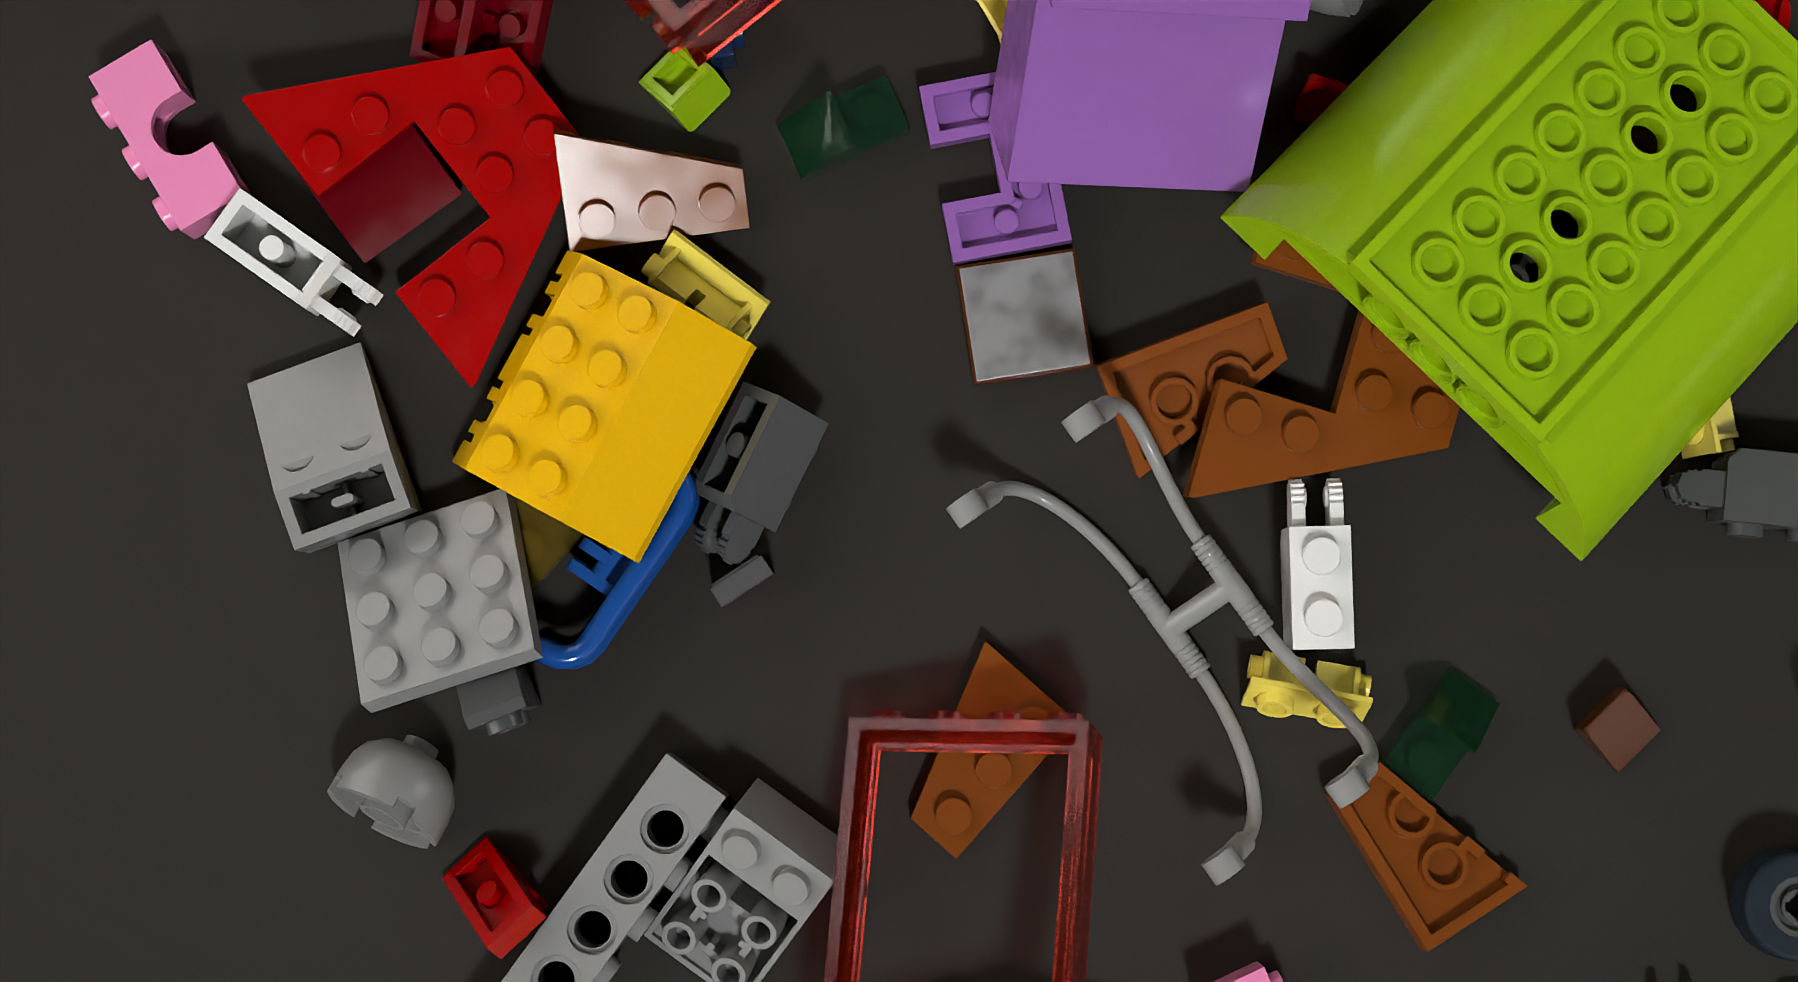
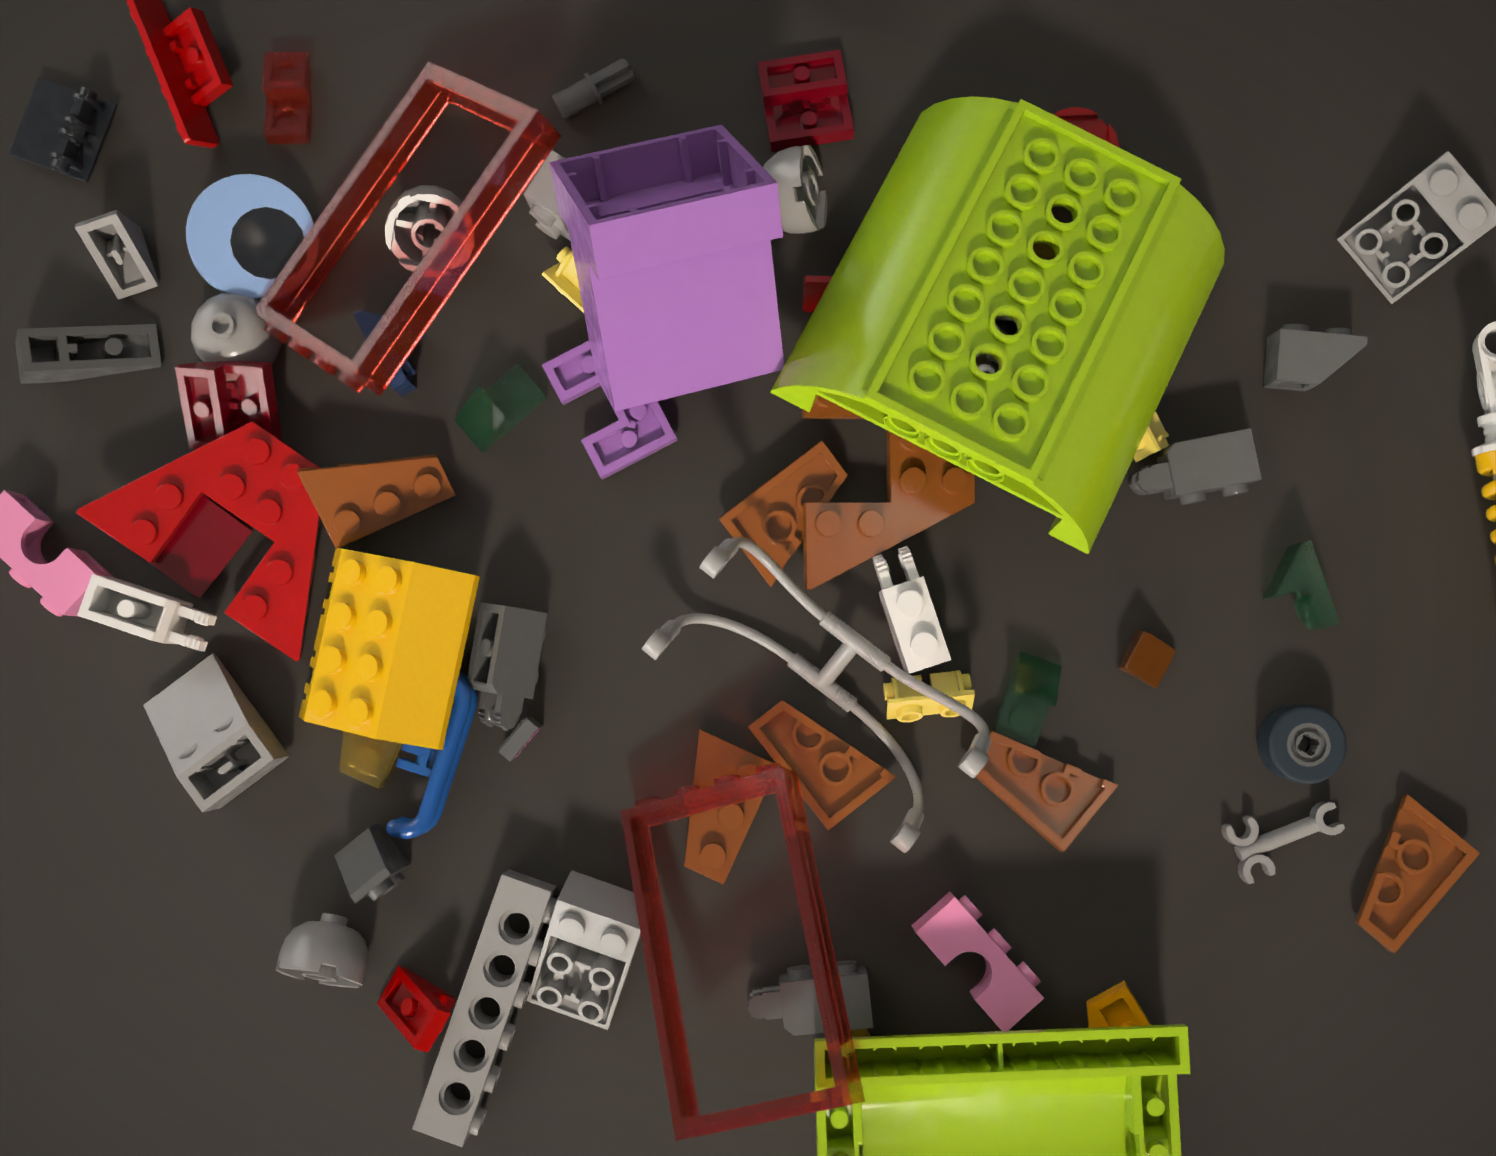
camera: 10 degrees left, 0 degrees up
(439, 600) = (314, 816): light grey plate -> none
(685, 89) = (385, 413): lime slope -> none
(694, 276) = (446, 547): light yellow hinge -> none
(1024, 317) = (660, 500): flat silver tile -> none
(1146, 751) = (829, 771): none -> dark orange wing

